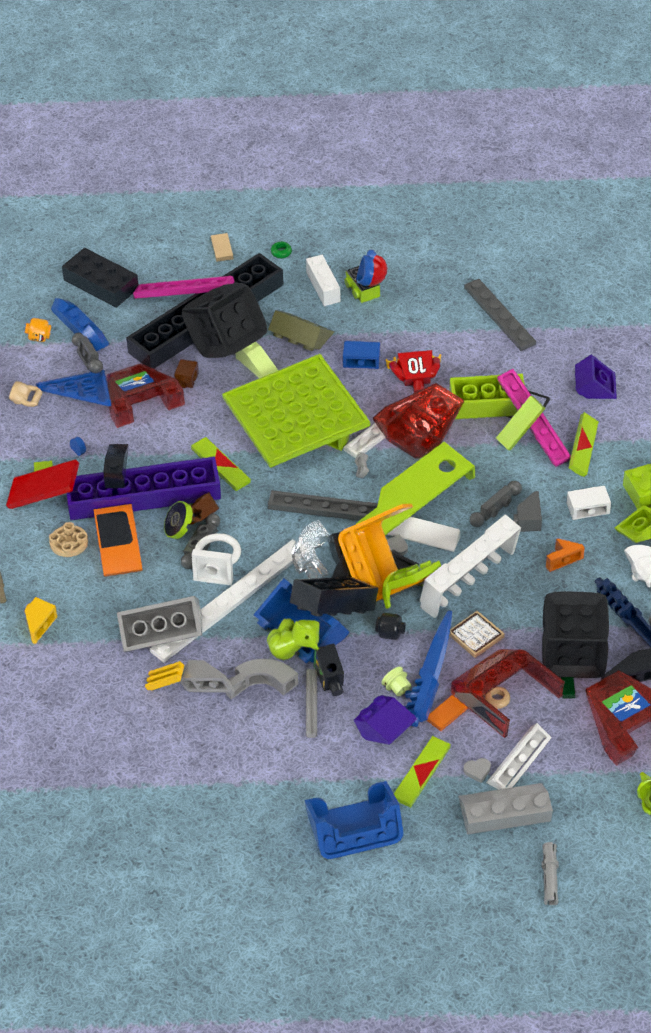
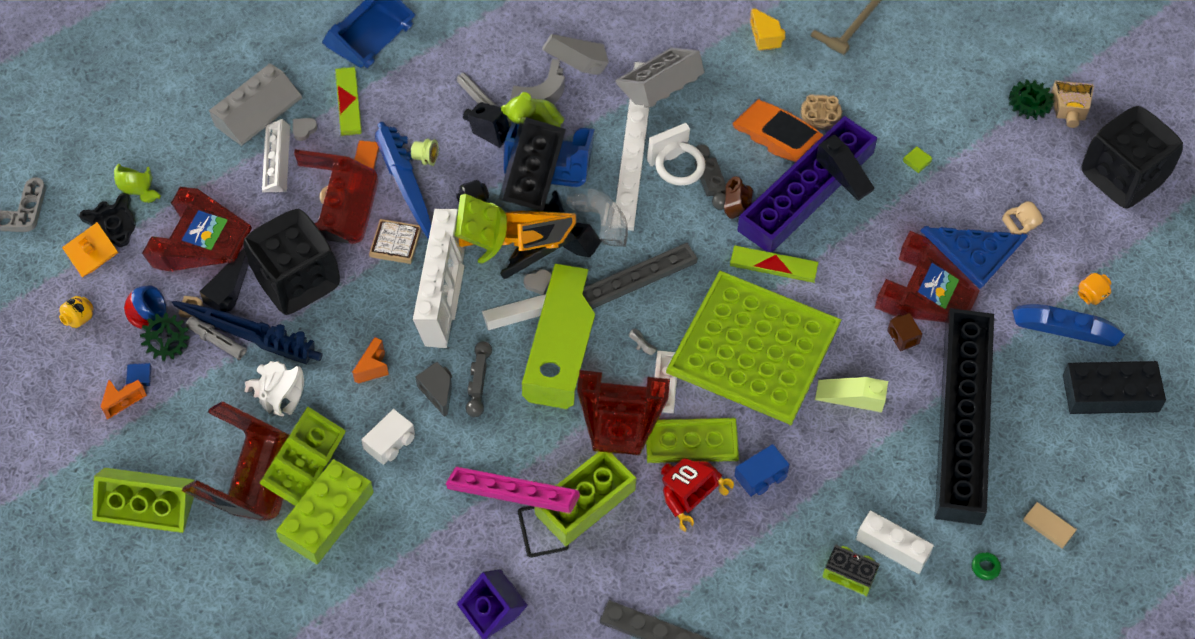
camera: 140 degrees right, 10 degrees up
(42, 484) = (890, 127): red tile -> none
(78, 445) = (913, 195): blue tile -> none
(87, 353) = (1010, 286): dark grey plate -> none
(164, 676) = (615, 43): yellow tile -> none
(177, 520) = (744, 172): tile -> none
(181, 287) = (1012, 417): dark pink tile -> none
(224, 320) = (915, 378): black piece -> none
(299, 330) = (853, 463): olive slope -> none
(371, 269) = (839, 558): piece -> none
(376, 392) = (693, 440): none -> lime tile
(384, 720) = (404, 107): dark purple slope -> none
(520, 423) = (518, 471): lime tile -> none
(550, 865) = (188, 86): light grey pin -> none
(583, 444) = (445, 509): lime tile -> none

